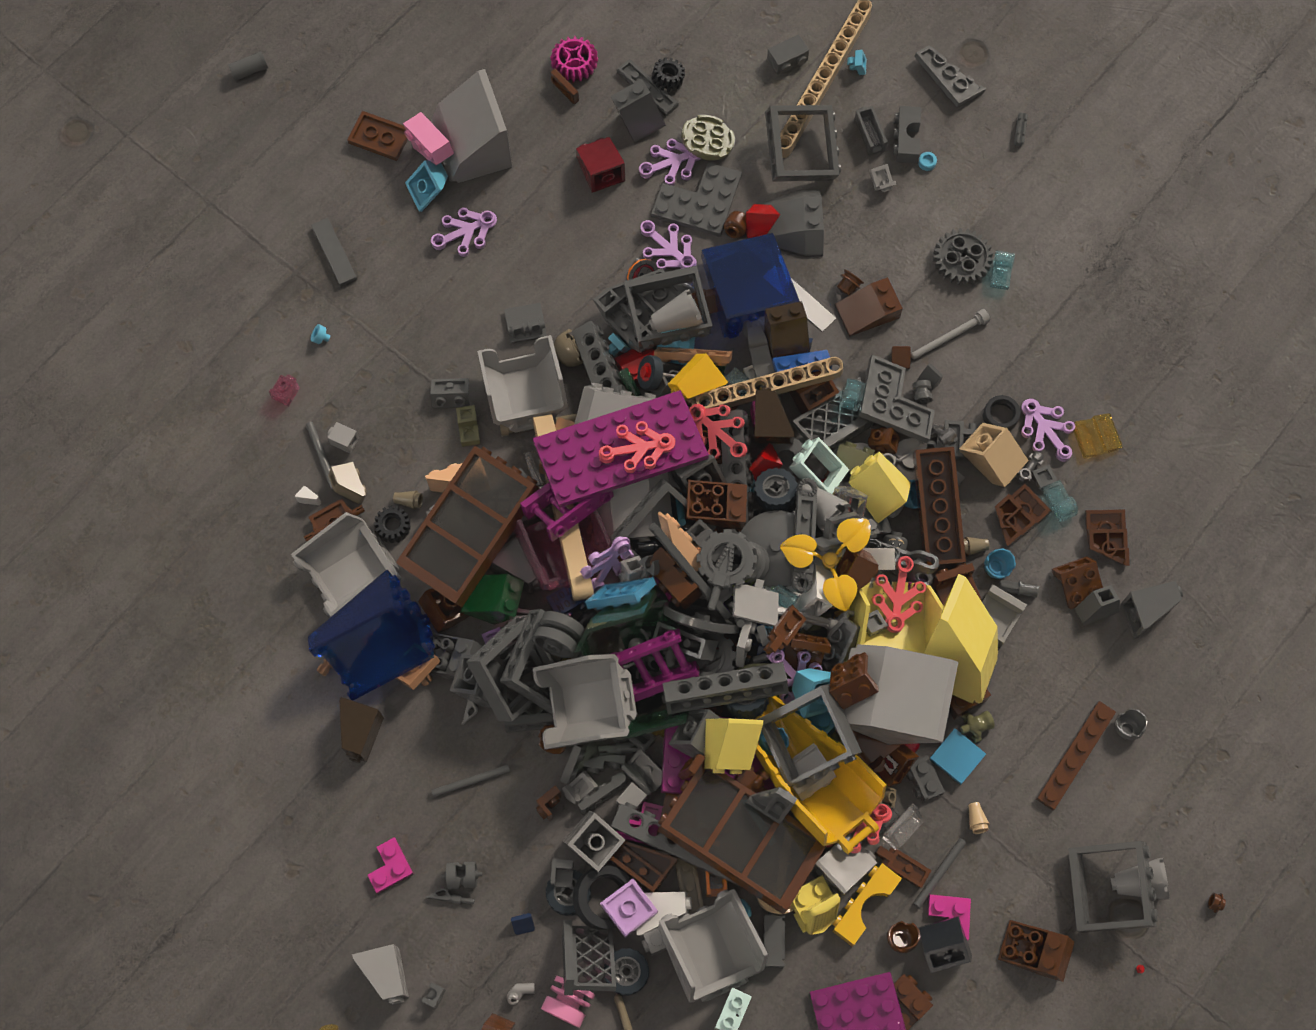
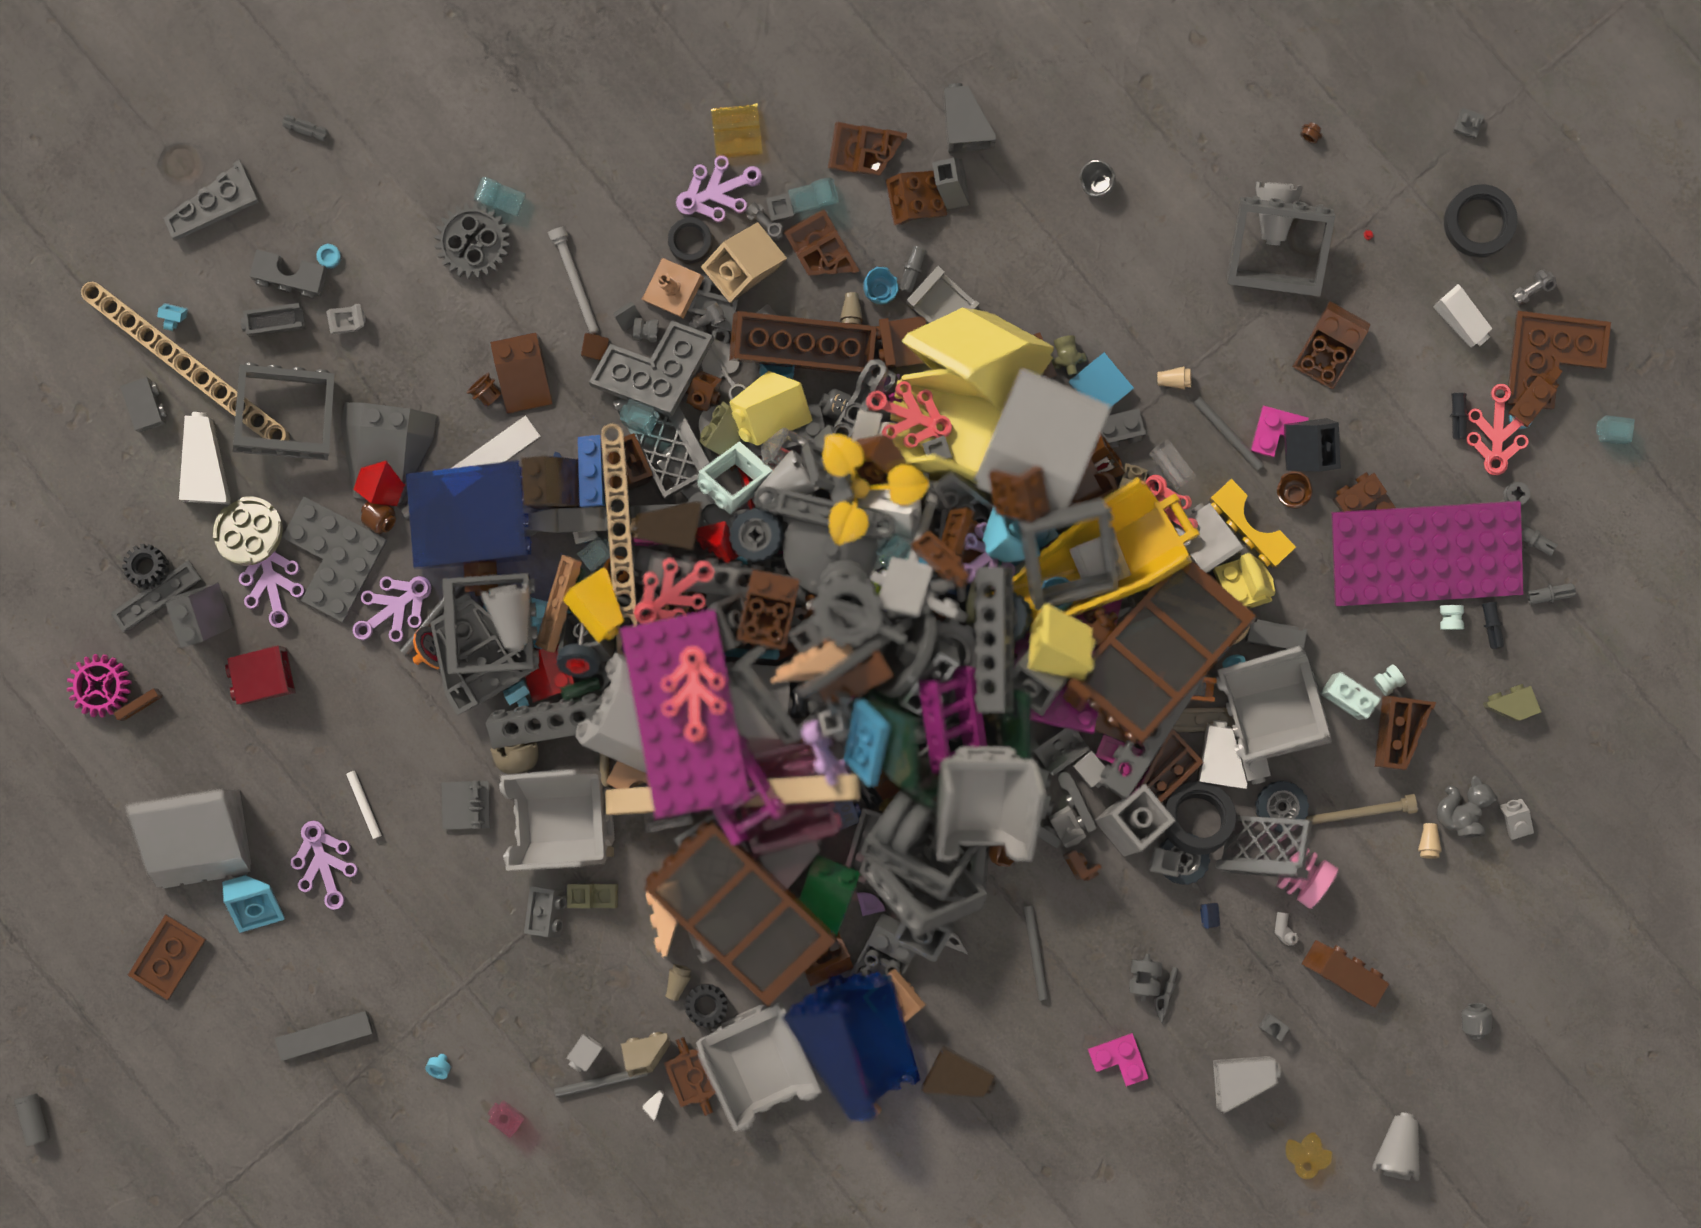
camera: 80 degrees left, 15 degrees up
(427, 139) = (196, 894): bright pink wedge -> none
(511, 253) = (364, 805): none -> white bar
(629, 908) = (1217, 792): lavender plate -> none
(752, 99) = (201, 465): none -> white slope
(773, 803) = (1136, 609): dark grey wing -> none
(904, 866) = (1215, 472): reddish brown hinge -> none
(960, 406) = (673, 288): none -> medium nougat tile
(1076, 755) = (1120, 248): reddish brown plate -> none

